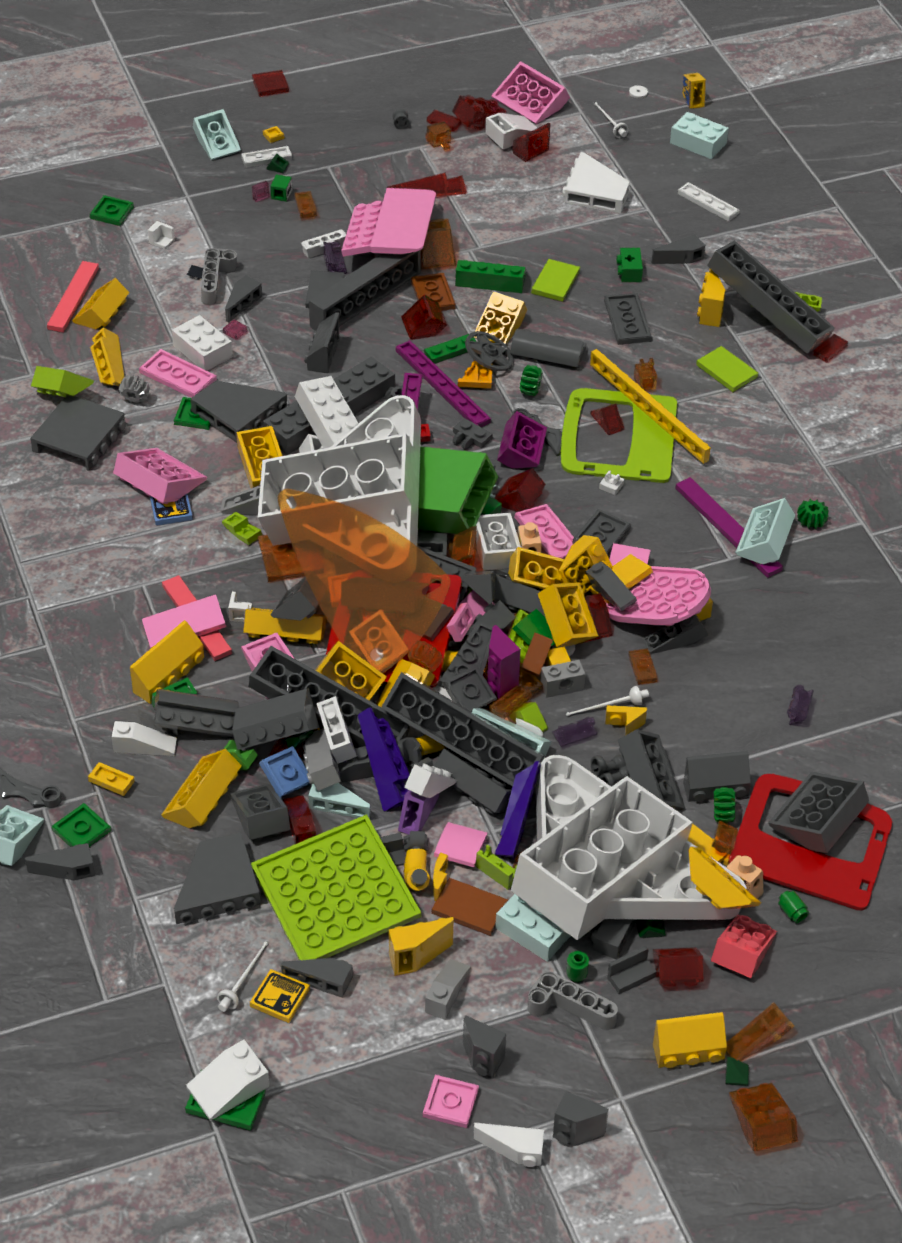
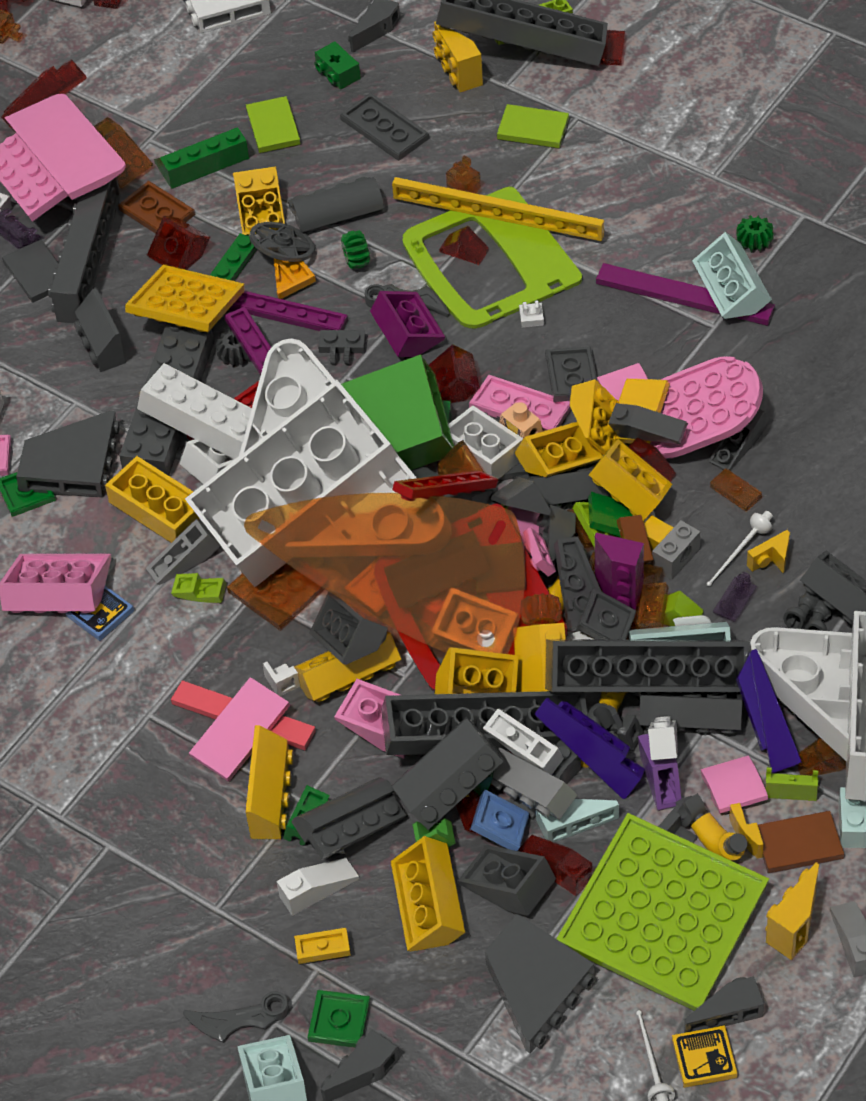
camera: 30 degrees left, 5 degrees up
(391, 350) = (184, 298): none -> yellow plate
(428, 541) = (444, 484): none -> red plate

